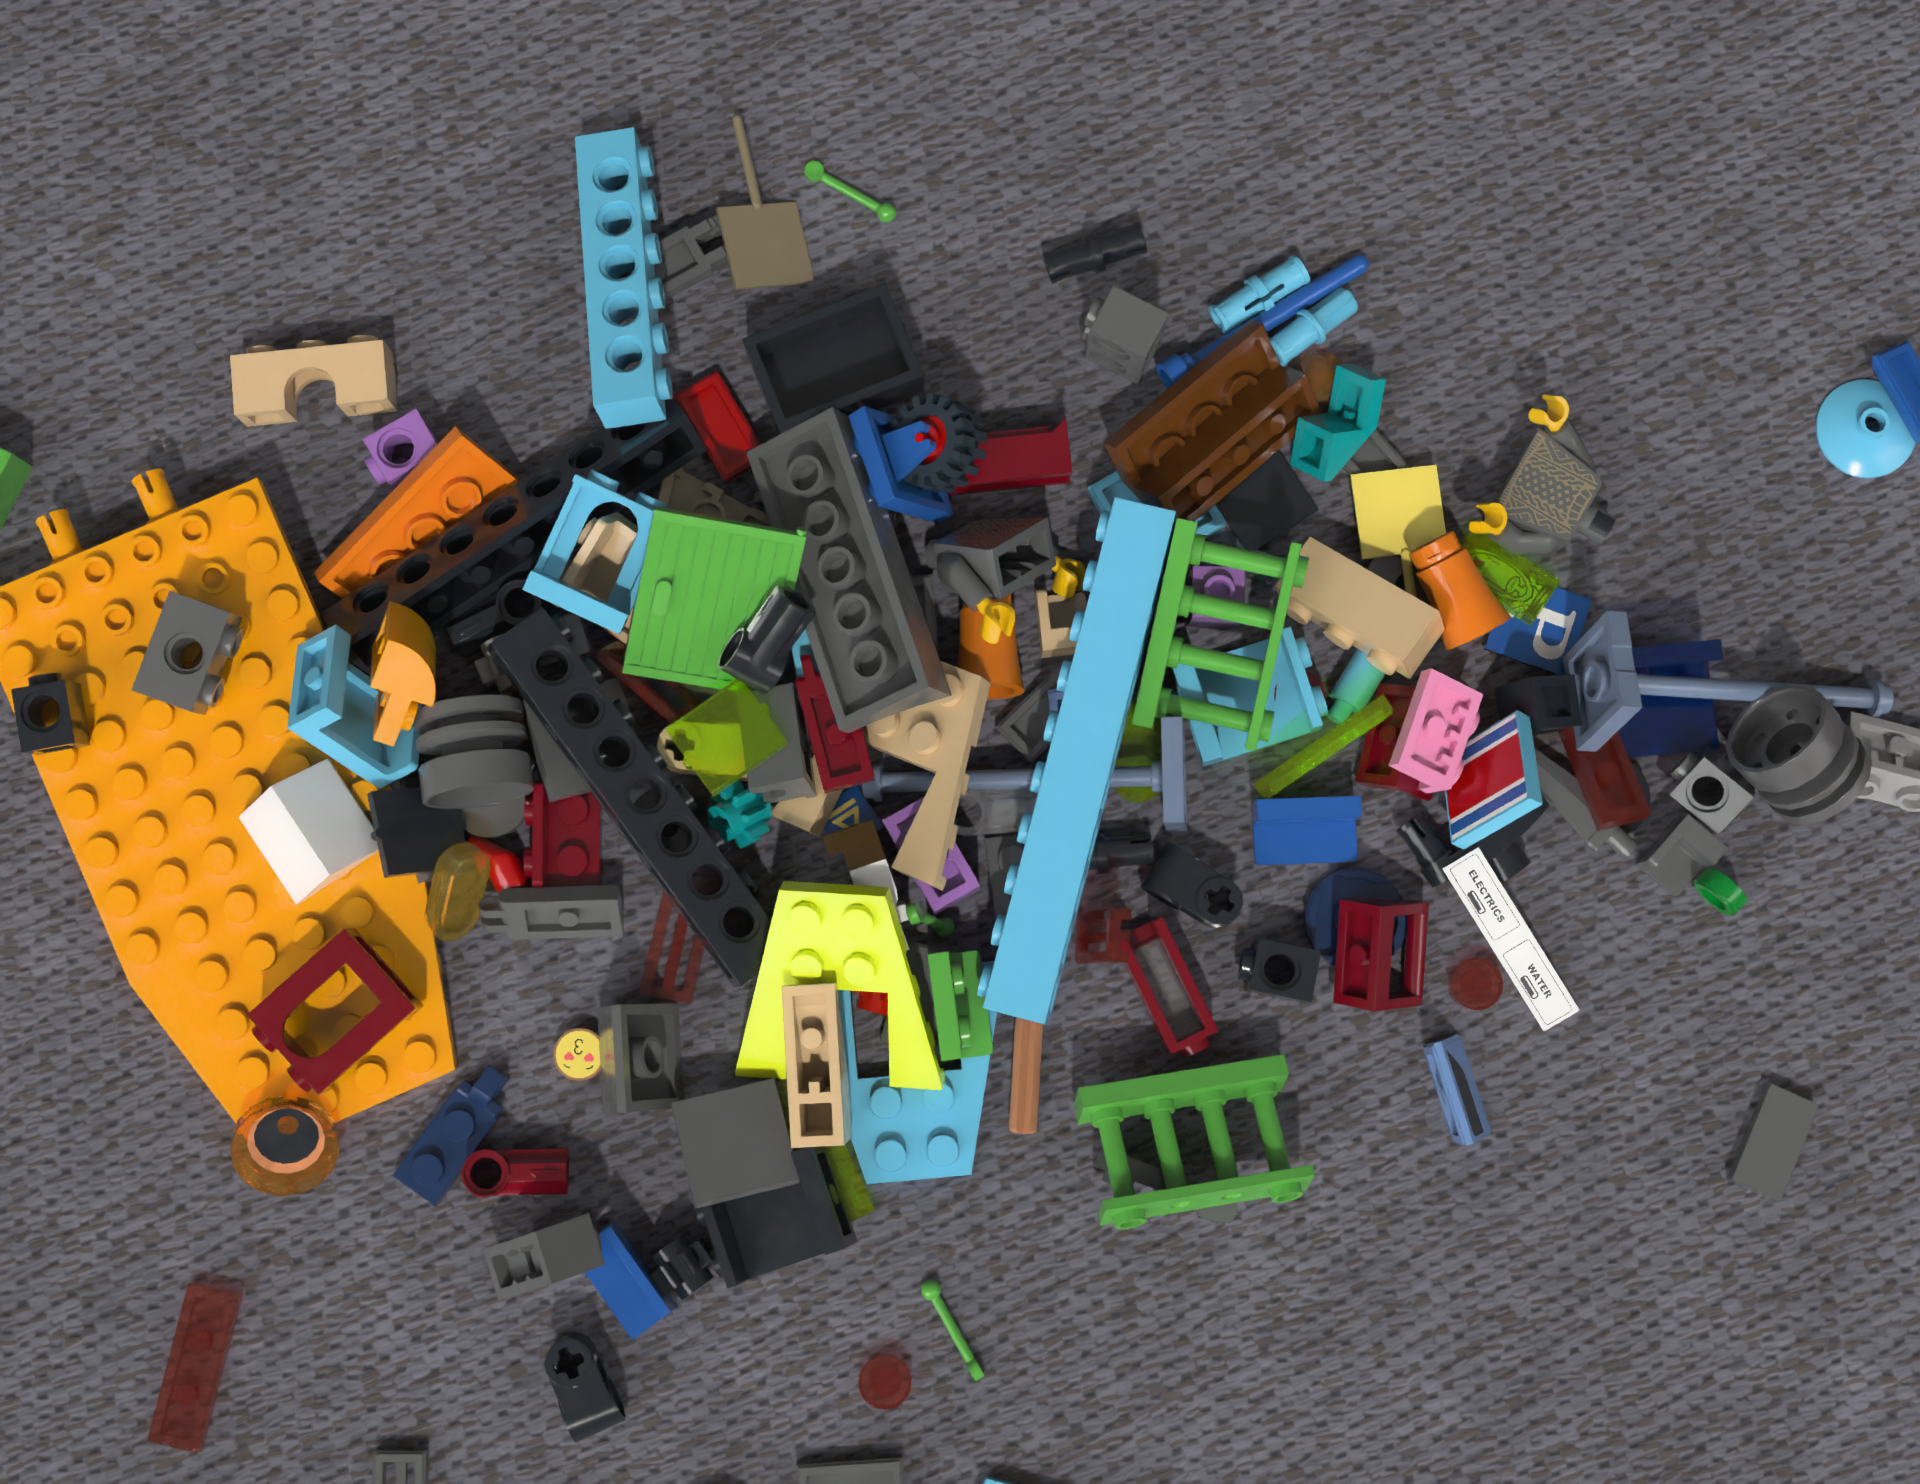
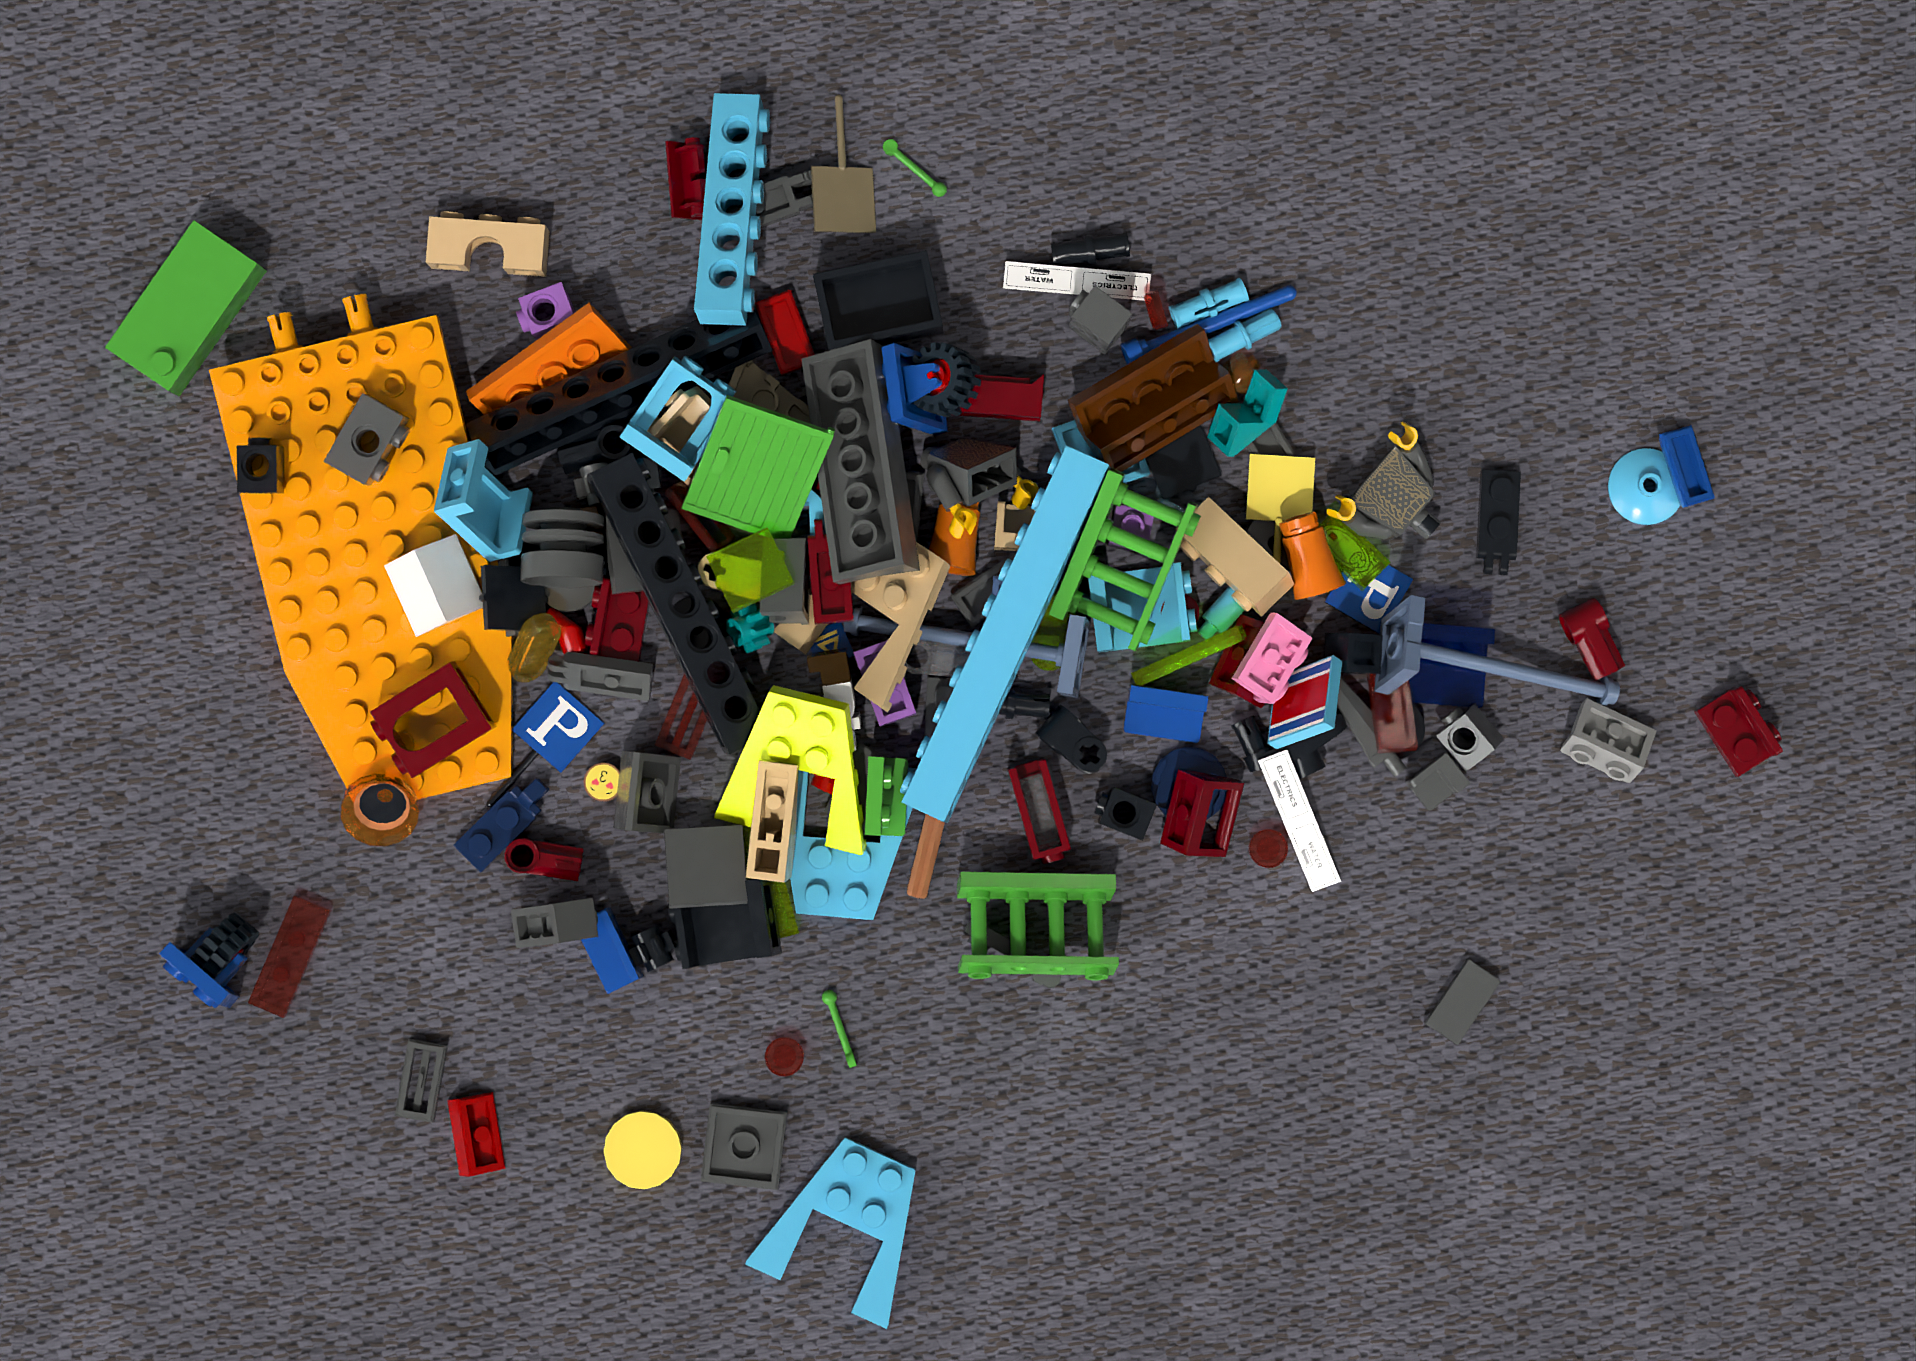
camera: 10 degrees right, 5 degrees up
(86, 1393) = (213, 960): none -> plate
(401, 671) = (521, 481): light orange brick -> none
(504, 996) = (555, 729): none -> blue piece
(557, 258) = (686, 188): none -> dark red hinge
(586, 1396) = (569, 1027): black piece -> none
(761, 651) = (786, 512): black piece -> none
(944, 926) = (886, 736): bright green hinge -> none
(1077, 295) = (1075, 279): none -> white sticker
(1111, 937) = (1004, 767): clear red tile -> none
(1193, 313) = (1155, 309): none -> clear red tile
(1457, 1090) = (1239, 922): medium blue slope -> none
(1686, 503) = (1498, 518): none -> black hinge
(1720, 891) = (1460, 813): green tile -> none
(1799, 754) = (1535, 724): flat silver wheel -> none
(1834, 622) = (1588, 630): none -> dark red piece

